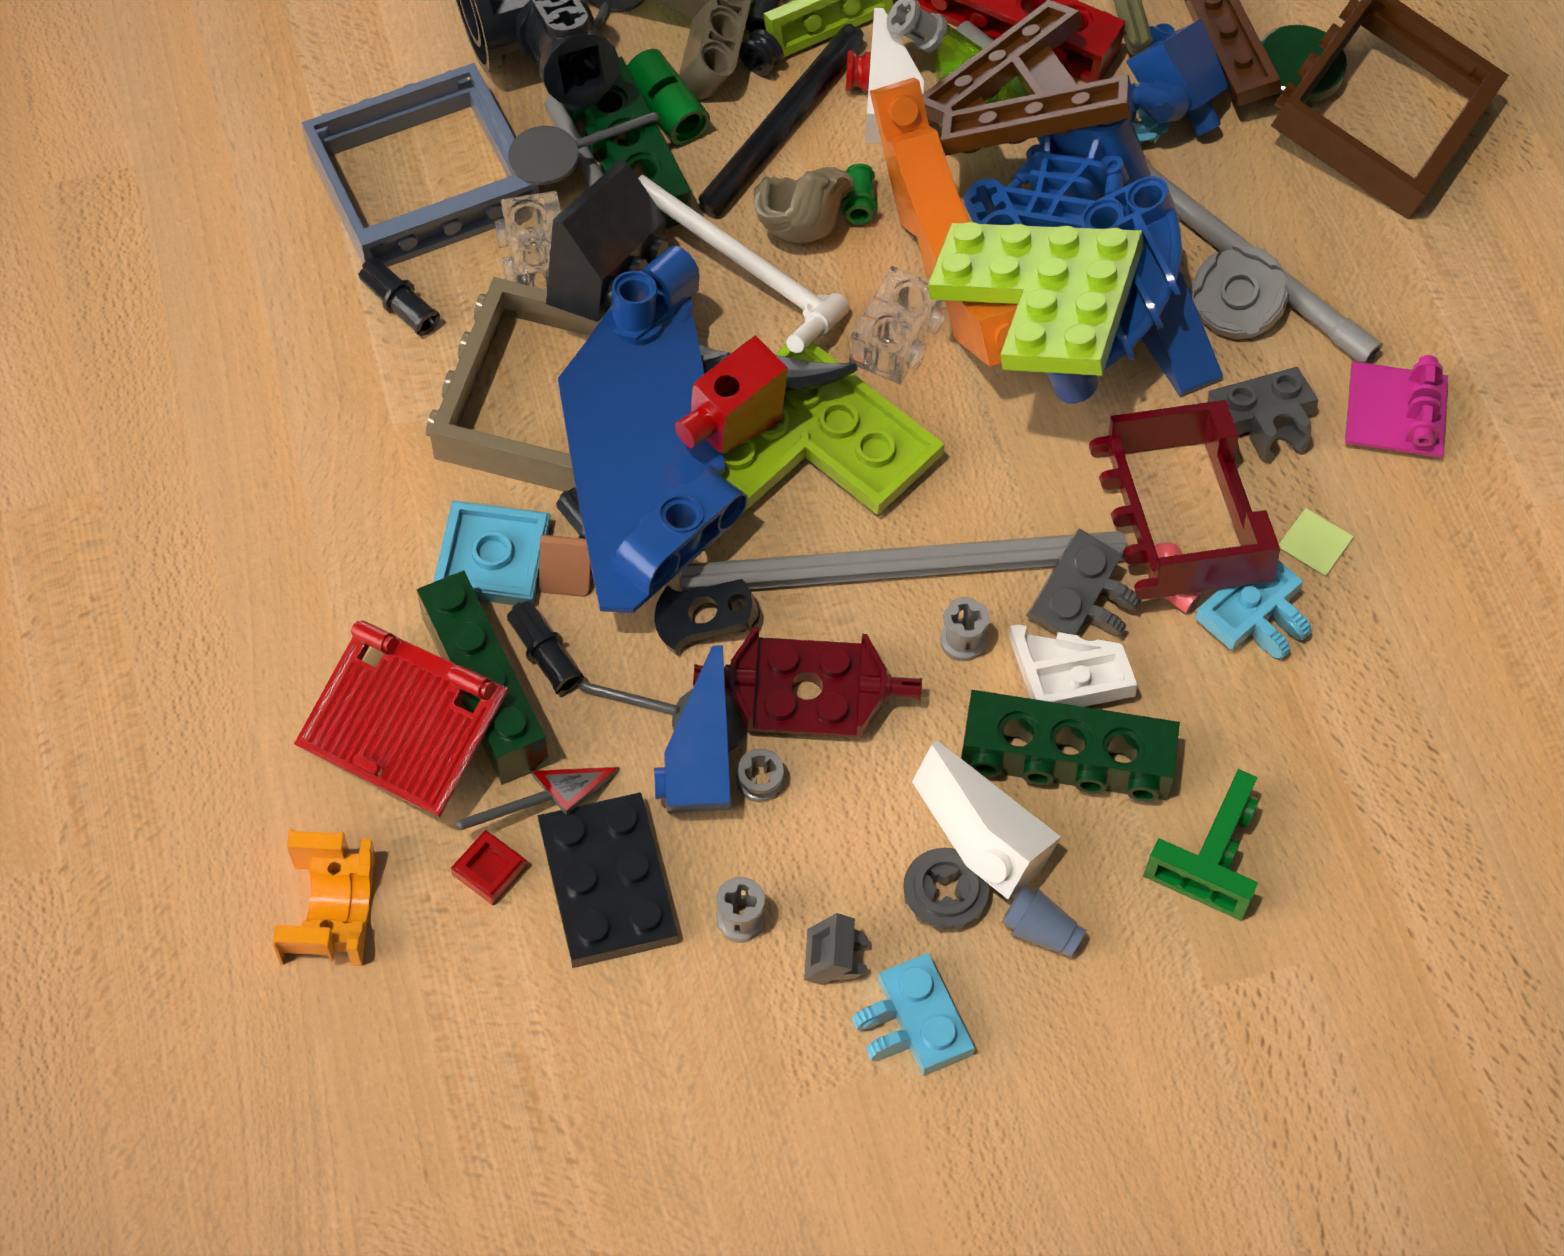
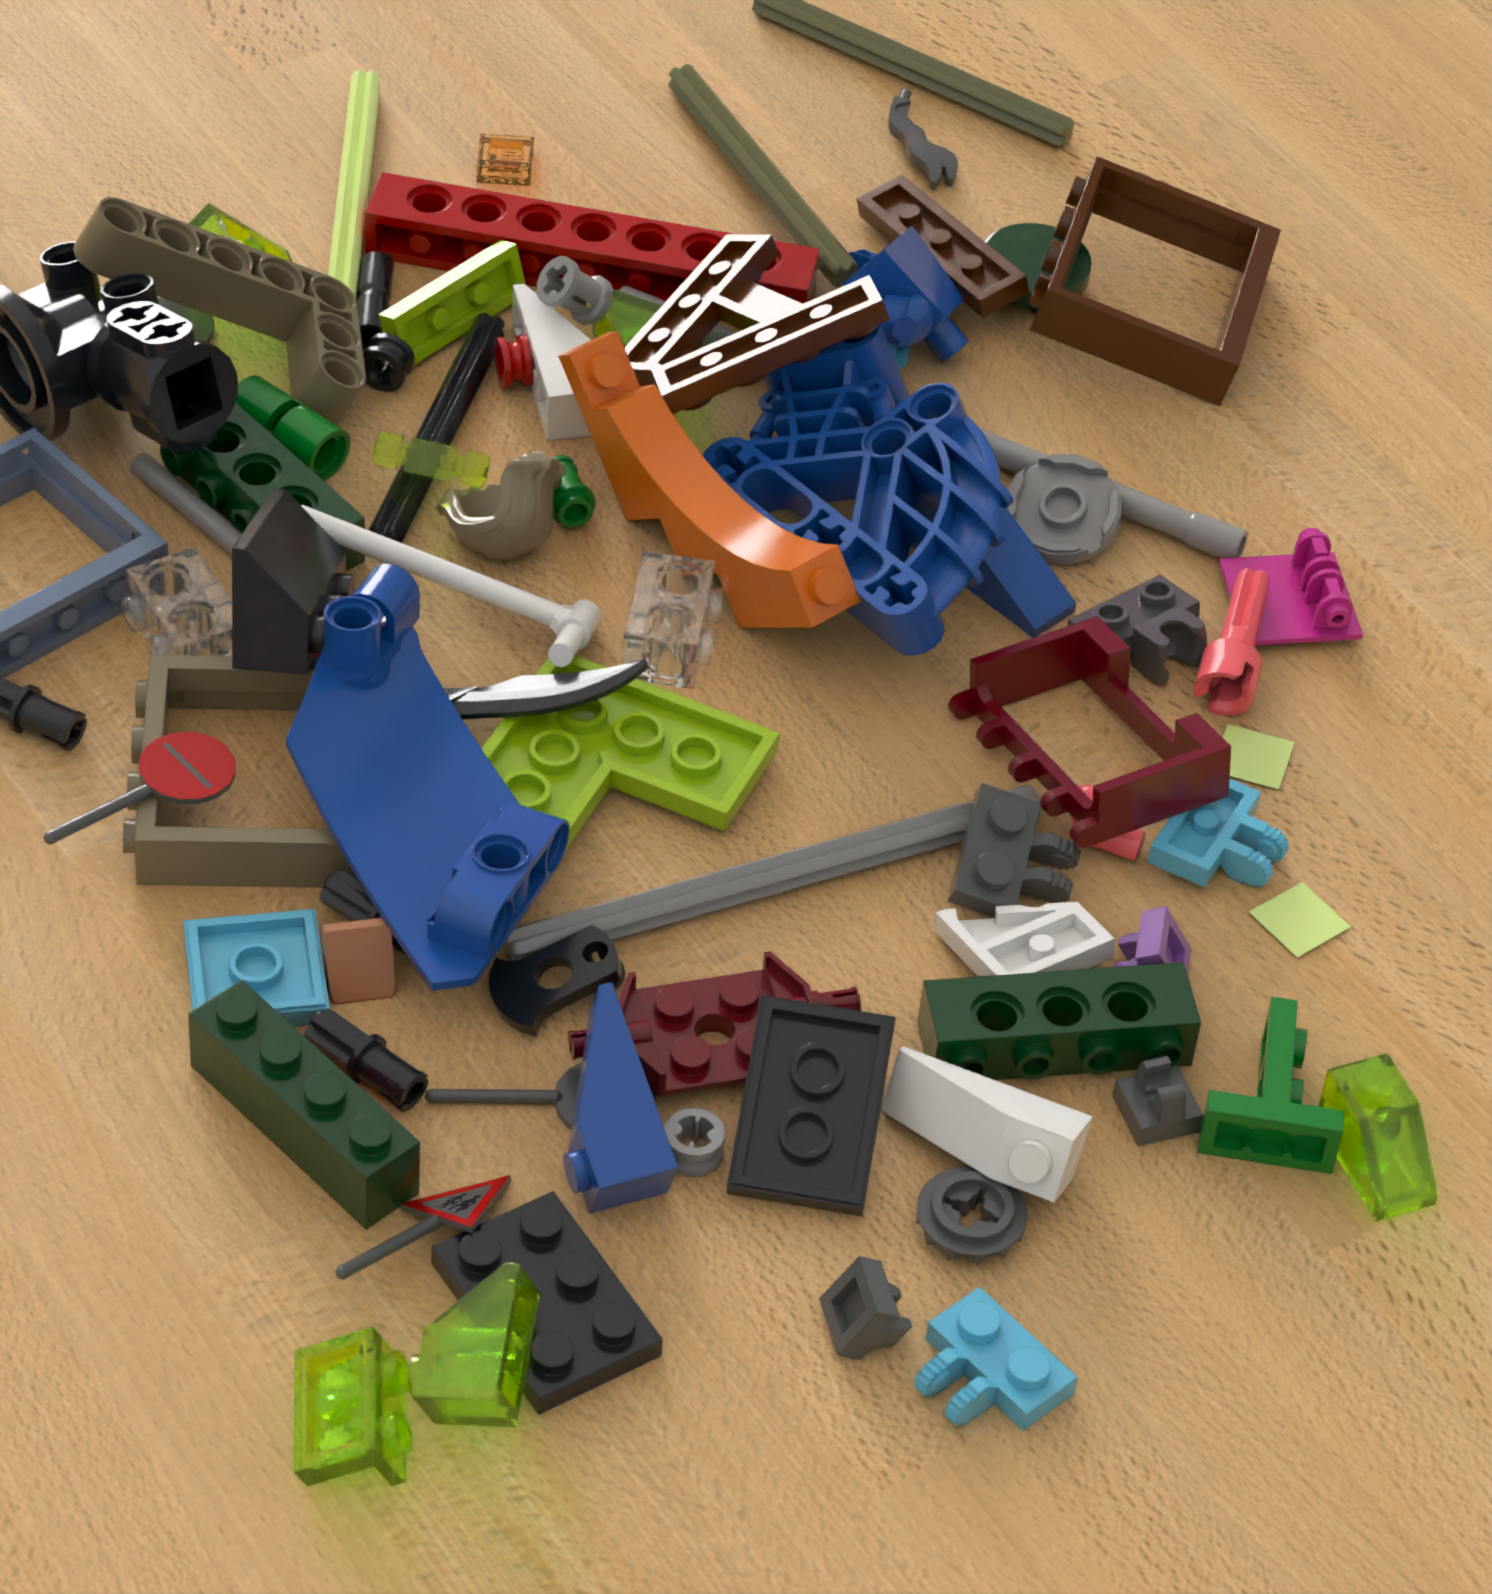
camera: 20 degrees left, 15 degrees down
(336, 900) = (200, 1397): light orange piece -> none
(400, 718) = (218, 1166): red window -> none
(435, 935) = (350, 1409): none -> clear neon green bracket
(479, 380) = (174, 768): none -> red piece
(489, 867) = (394, 1314): red tile -> none
(534, 917) = (478, 1353): none -> clear neon green slope
(551, 154) = (176, 509): dark grey piece -> none
(729, 899) = (743, 1288): light grey bush -> none
(736, 398) = (520, 716): red torso -> none
(761, 149) = (431, 459): none -> clear neon green axle
(853, 771) = (811, 1105): none -> black tile
(968, 628) = (874, 936): light grey bush -> none
(1043, 922) = (1103, 1221): sand blue cone -> none
(1061, 277) = (881, 508): lime plate -> none
(1124, 829) = (1157, 1102): none -> dark grey tile
(1170, 699) = (1157, 941): none -> medium lavender tile
(1284, 906) = (1382, 1136): none -> clear neon green slope
(1298, 694) = (1299, 919): none -> yellowish green sticker
(1323, 460) = (1232, 664): none -> coral piece

